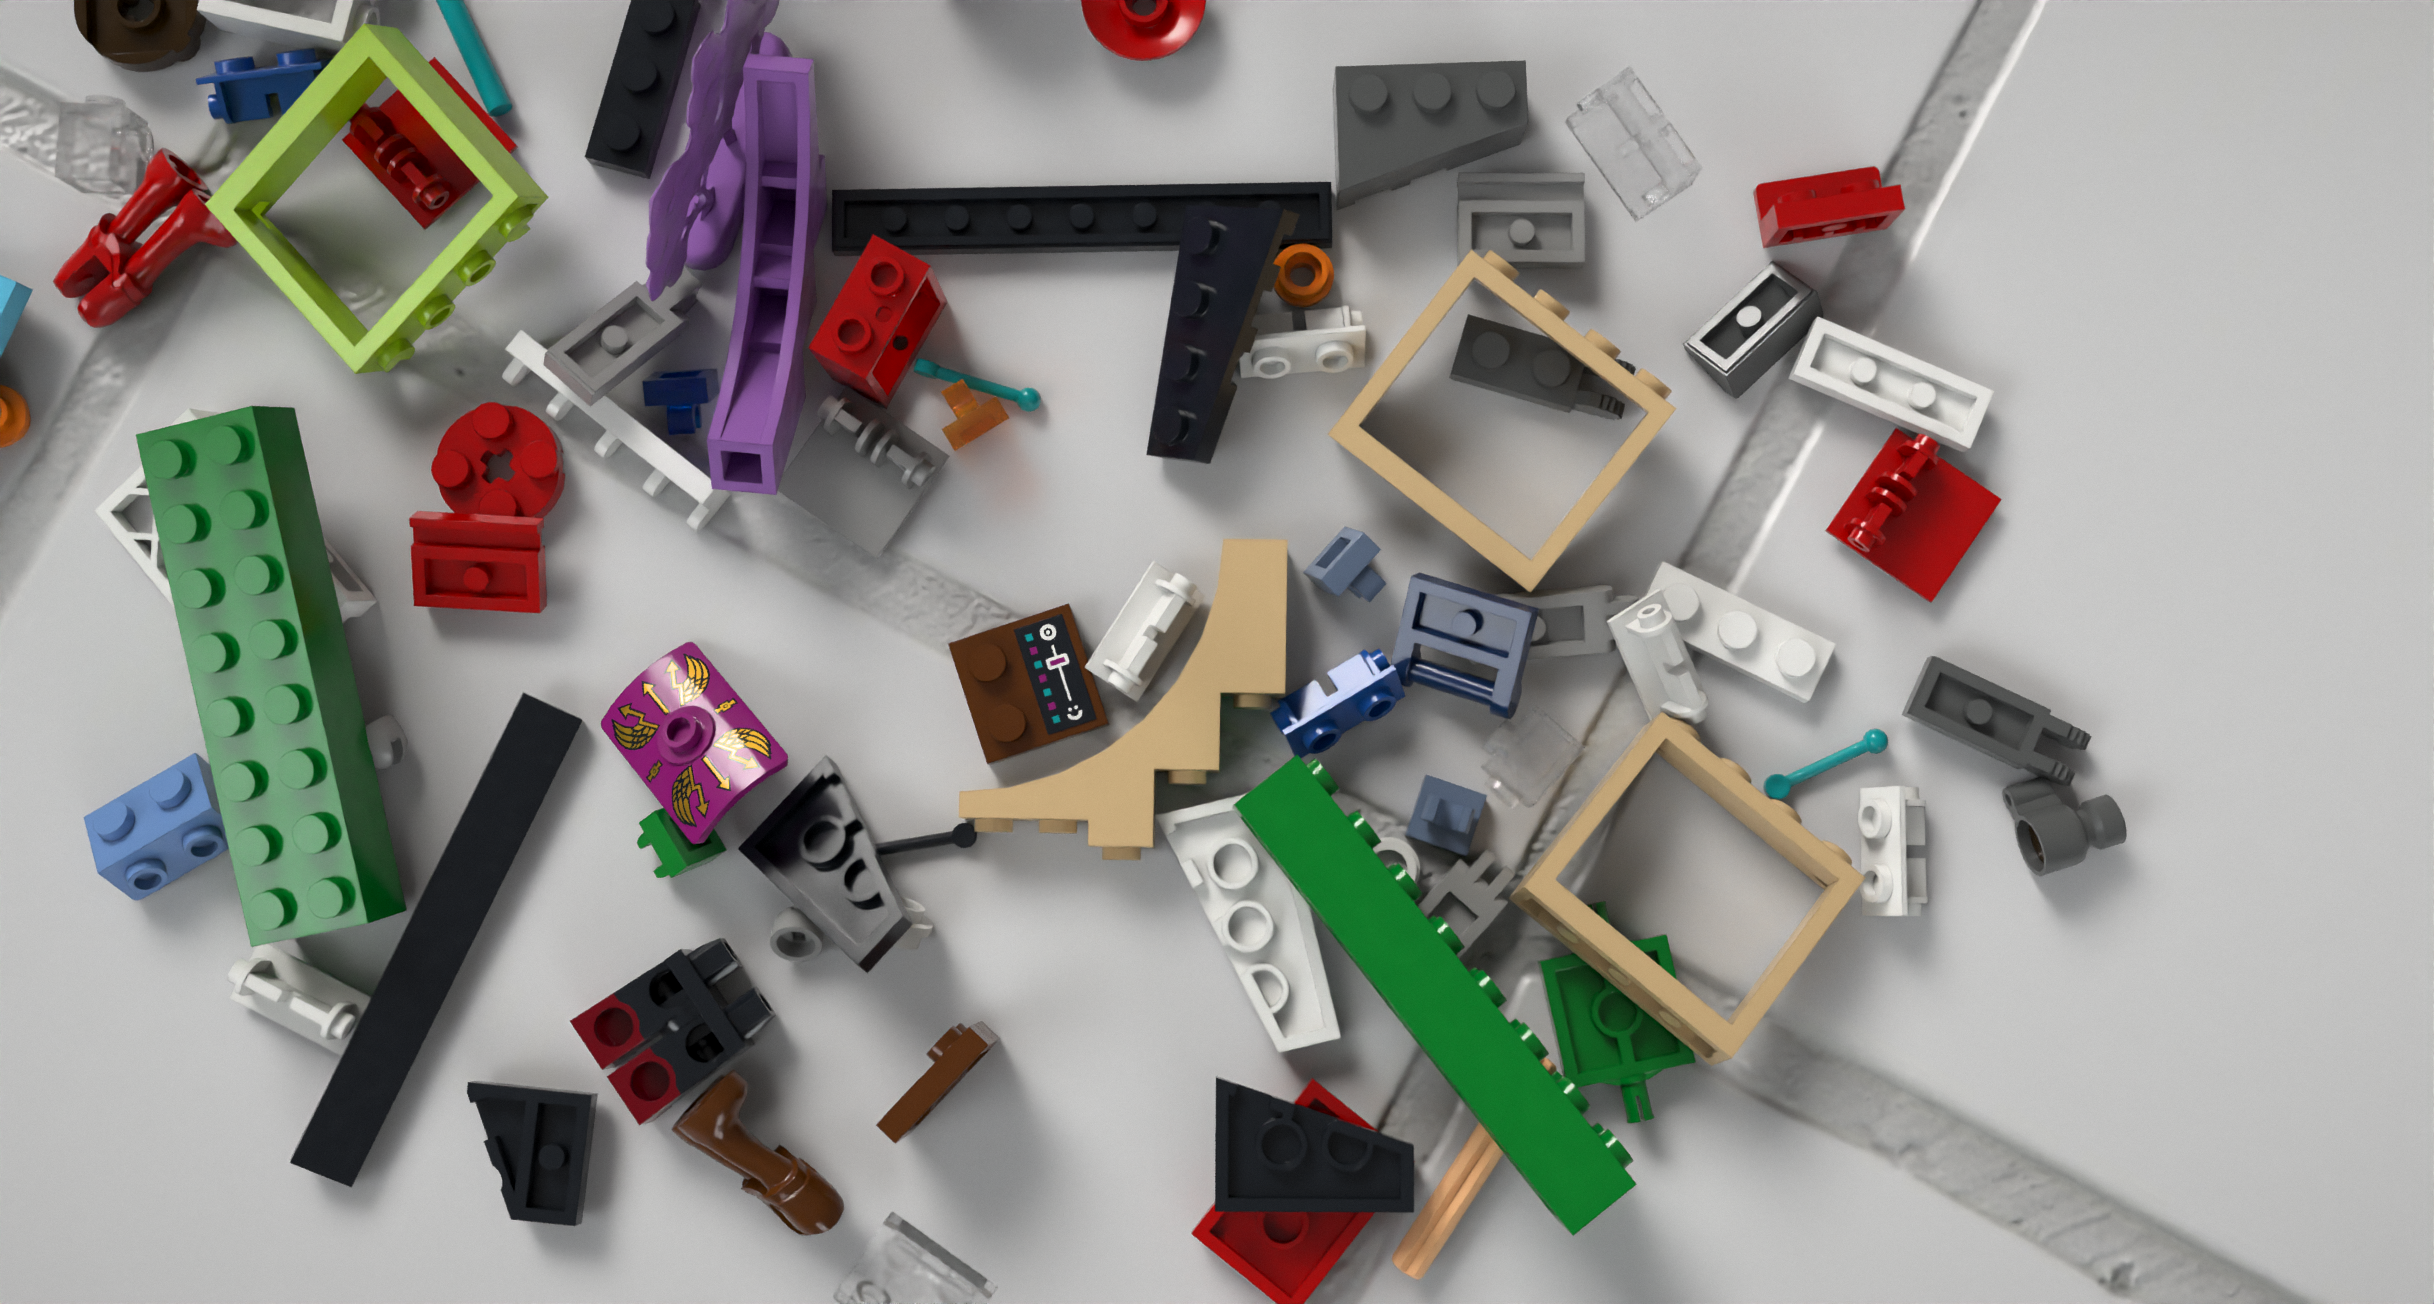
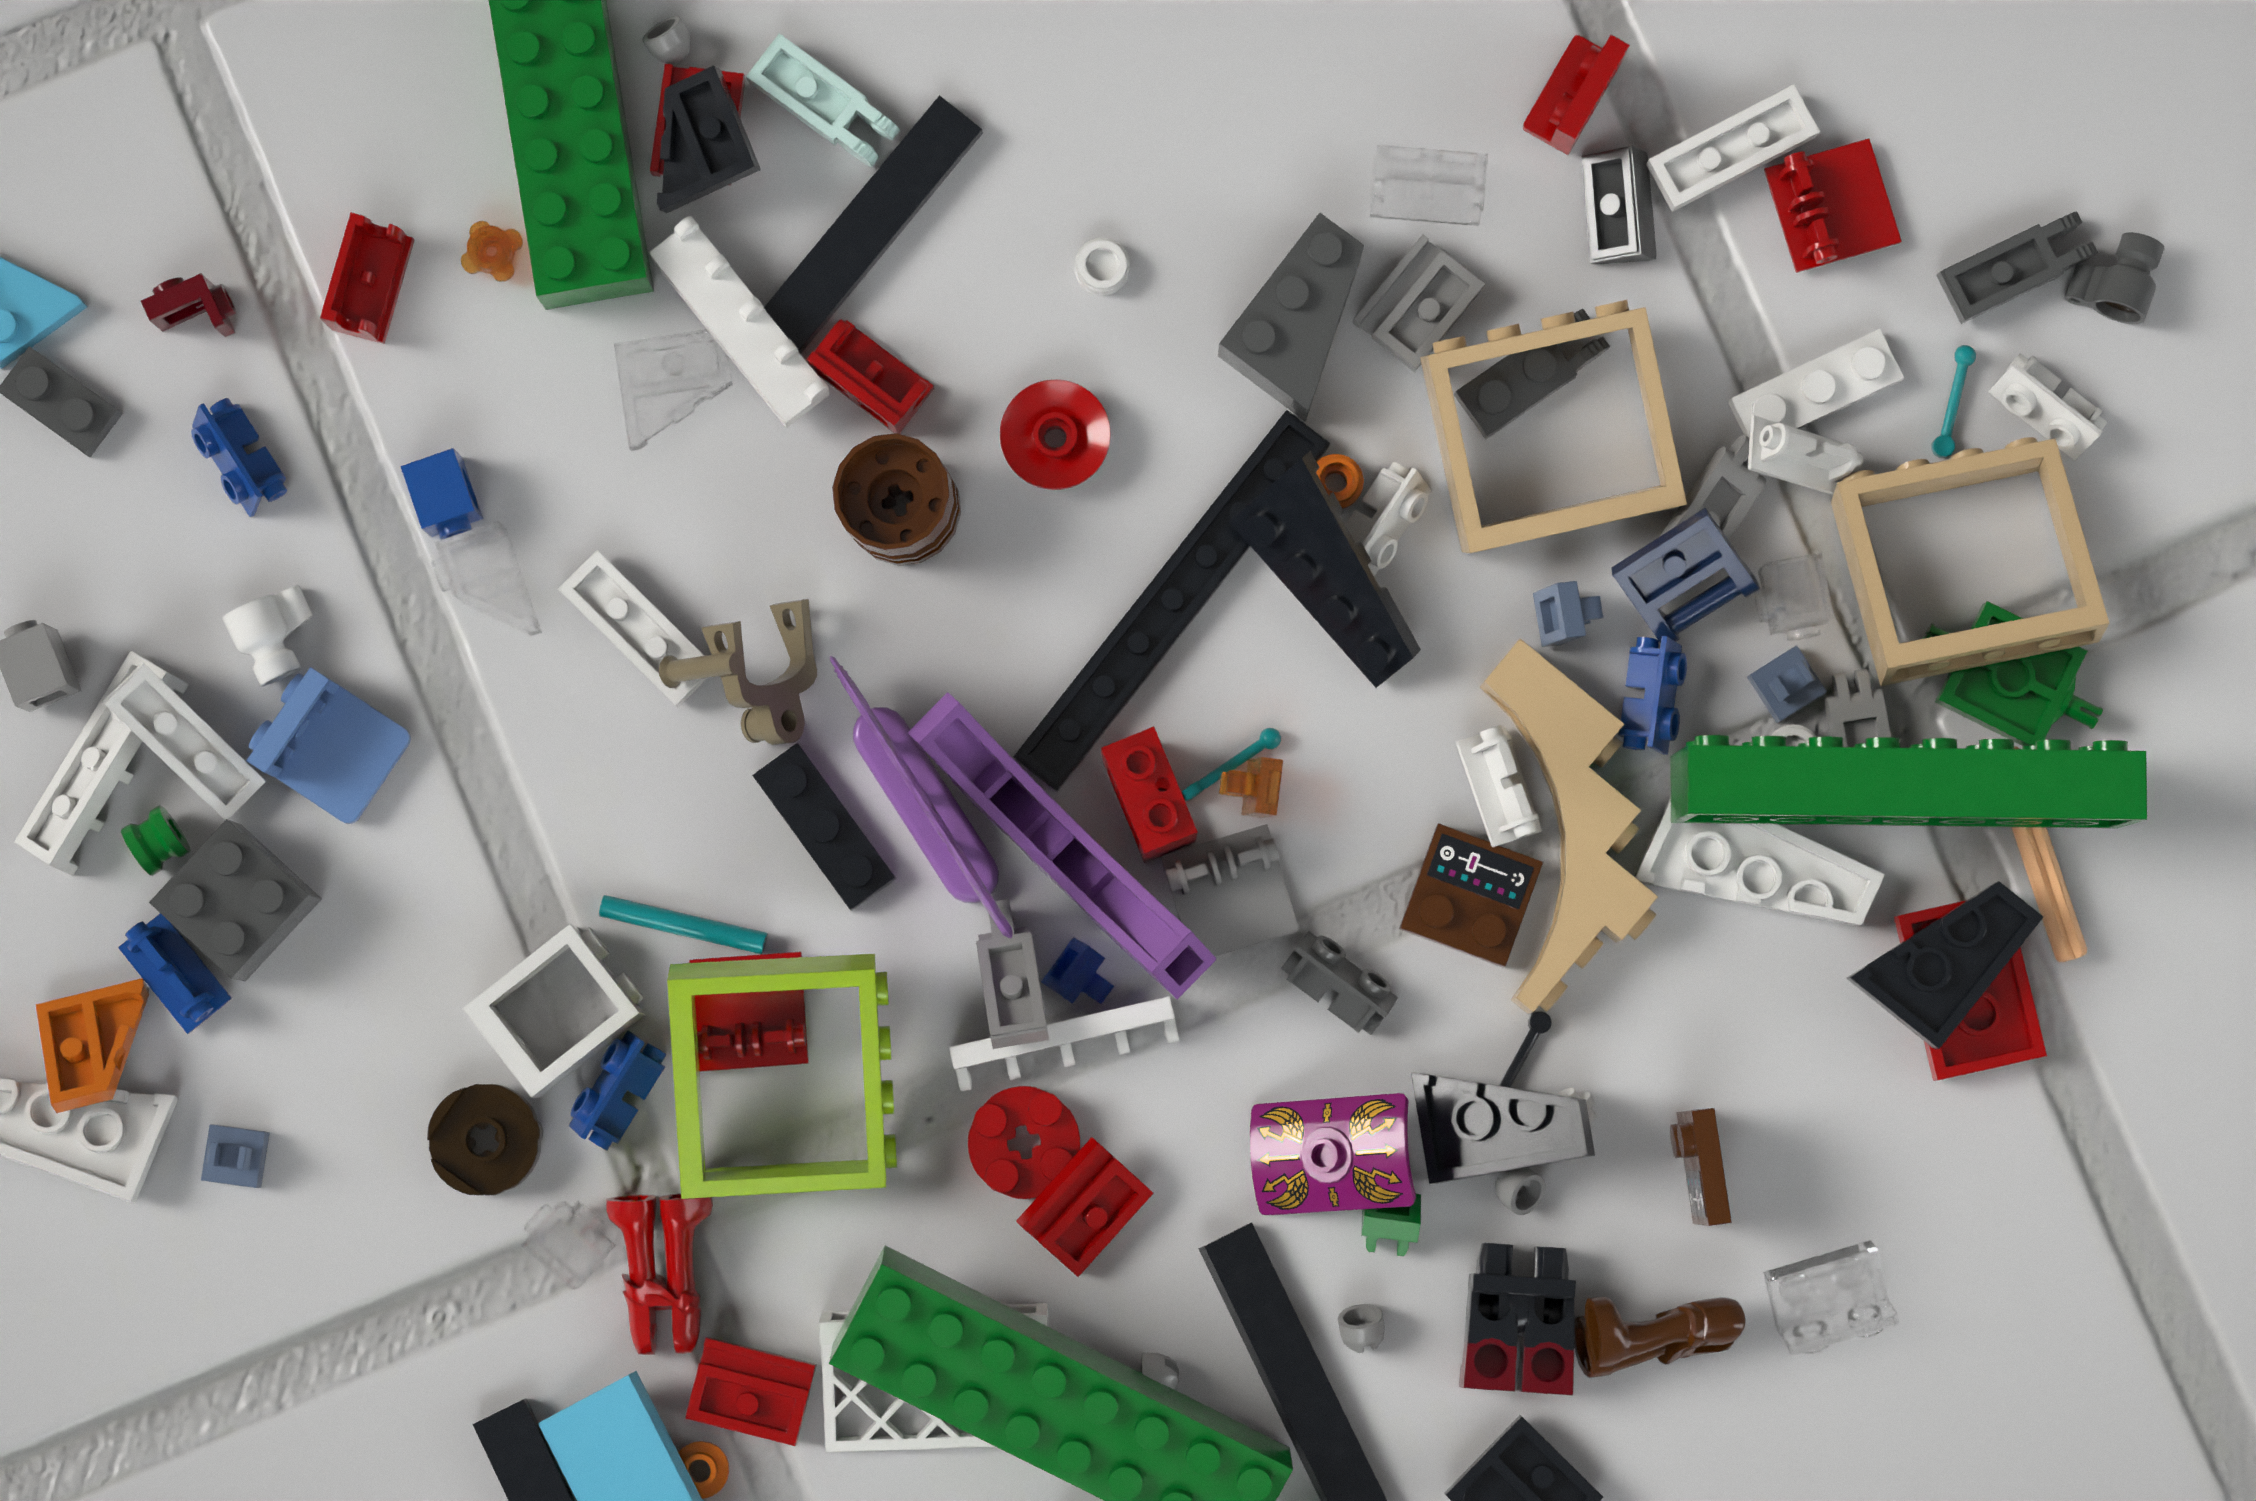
camera: 55 degrees left, 0 degrees up
(93, 403) = (751, 1391): none -> red plate
(571, 879) = (1361, 1327): none -> light grey hinge
(860, 600) = (1326, 967): none -> dark grey hinge

